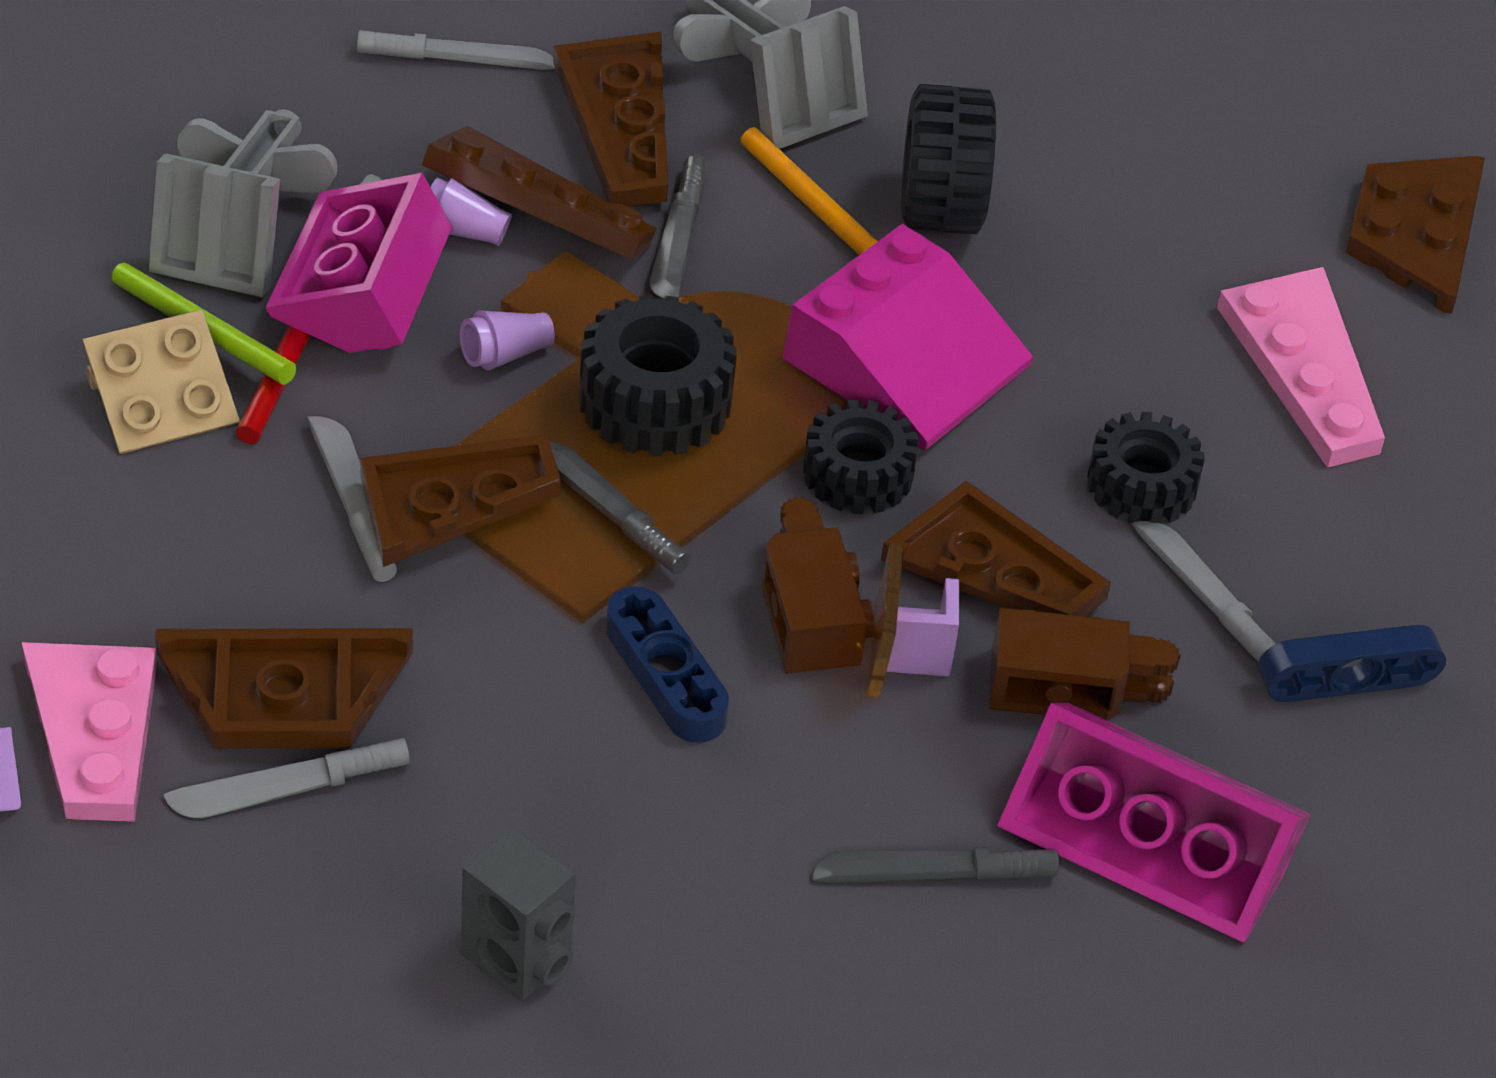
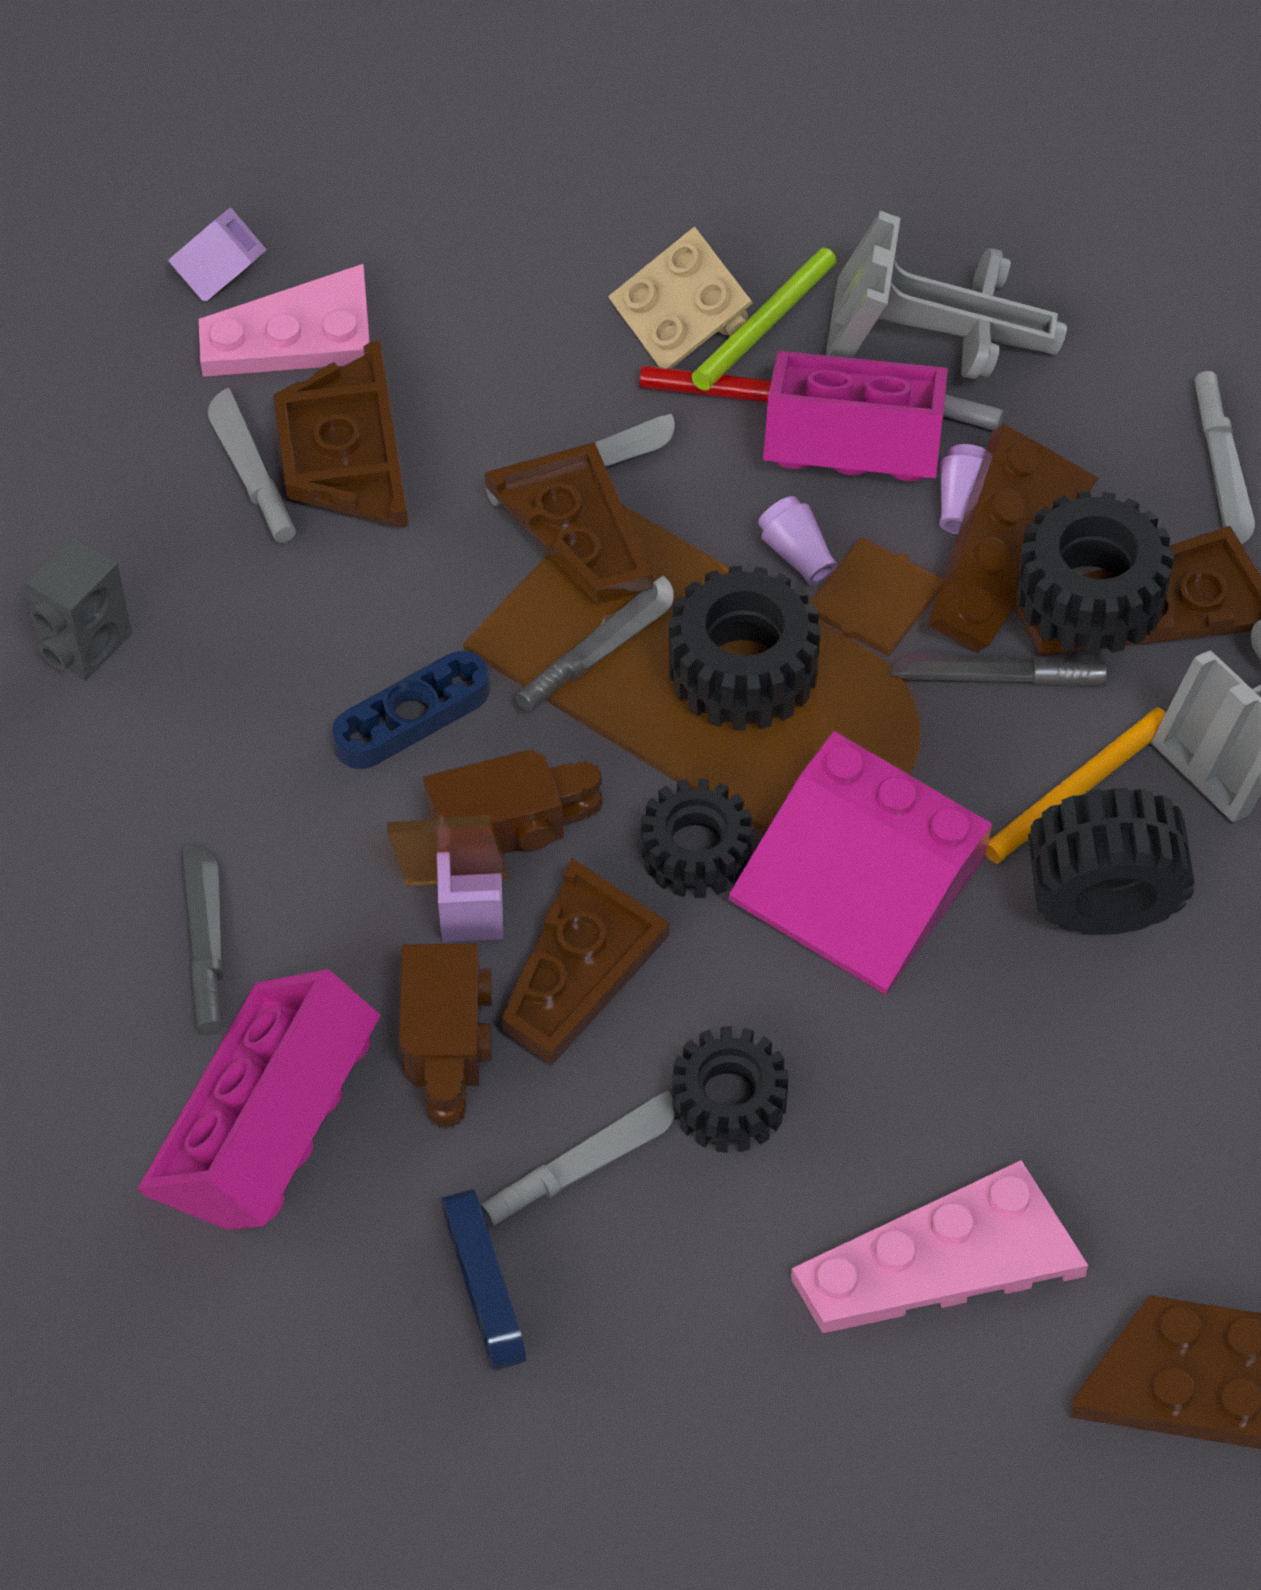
camera: 90 degrees right, 10 degrees up
(623, 114) = (1099, 535): none -> black tyre

